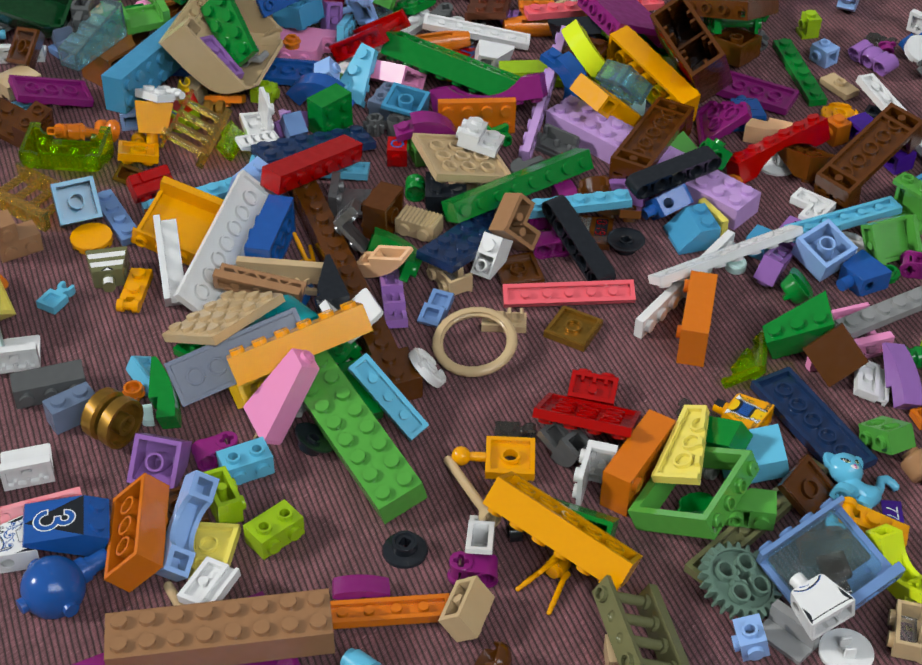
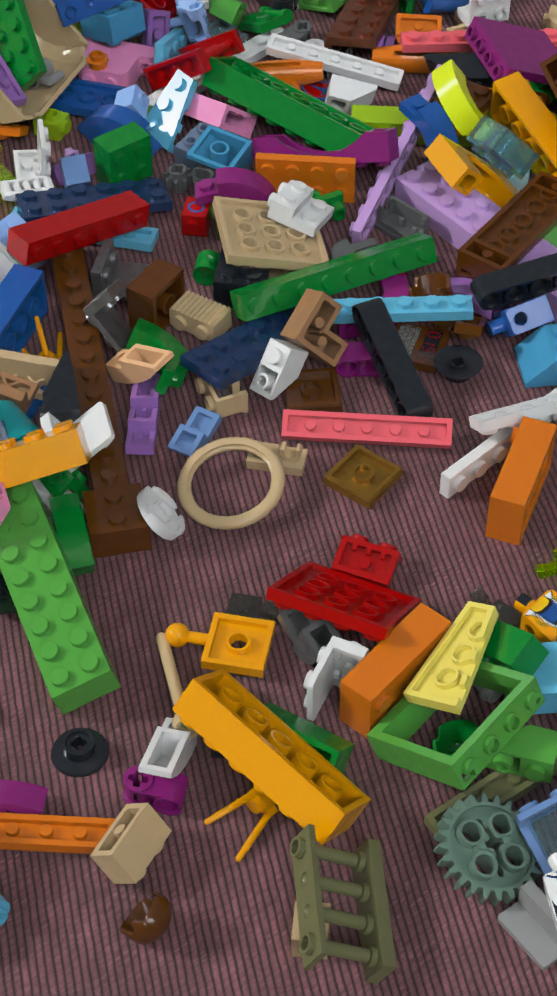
camera: 10 degrees right, 5 degrees up
(388, 397) = (99, 548): medium azure plate -> none
(750, 638) = (484, 927): light blue brick -> none

